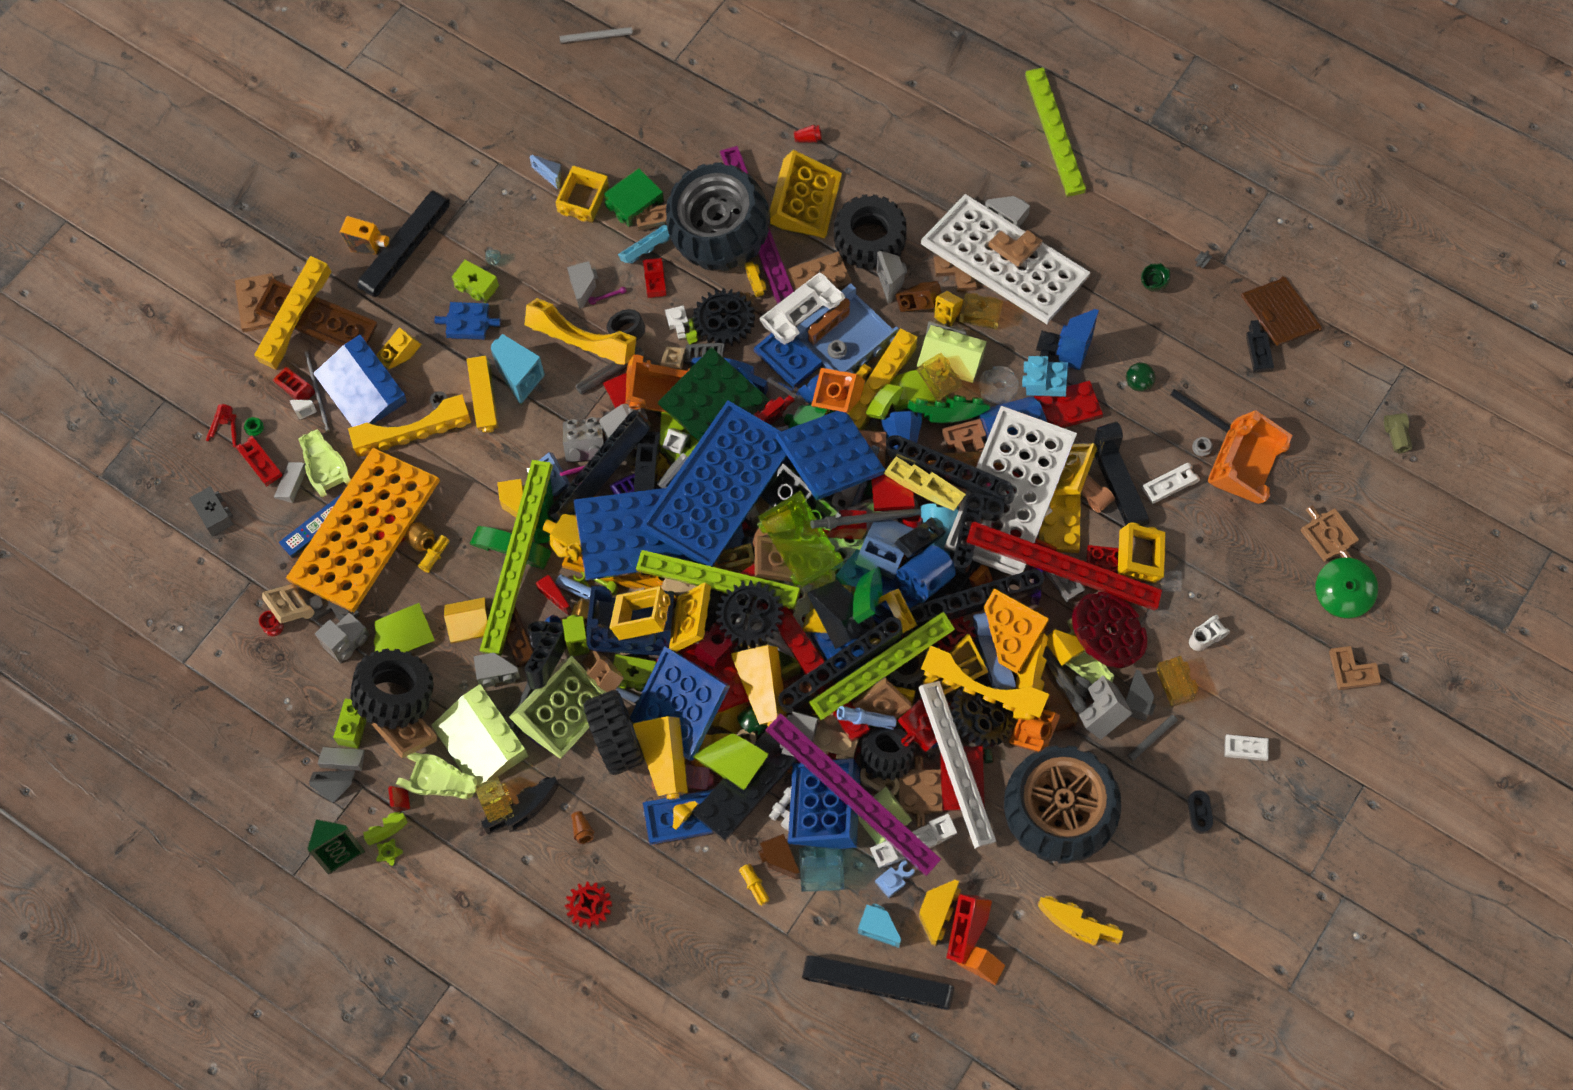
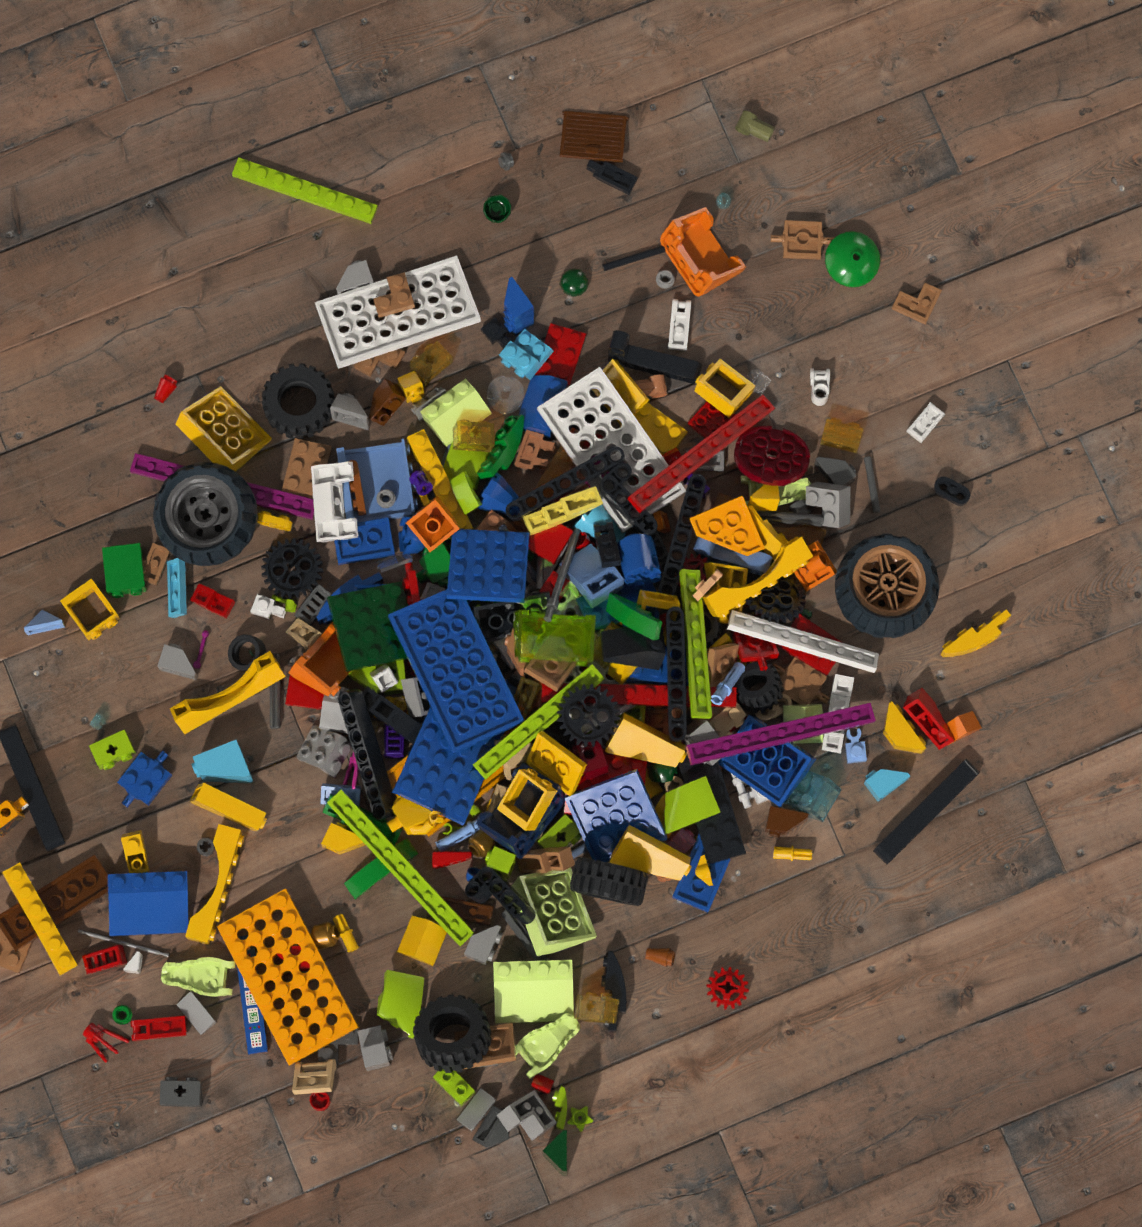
camera: 60 degrees left, 10 degrees up
(362, 800) = (530, 1113): none -> light grey brick
(865, 361) = (420, 483): none -> dark purple bush
(939, 639) = (704, 586): none -> light nougat plate
(1315, 451) = (719, 201): none -> clear light blue hinge

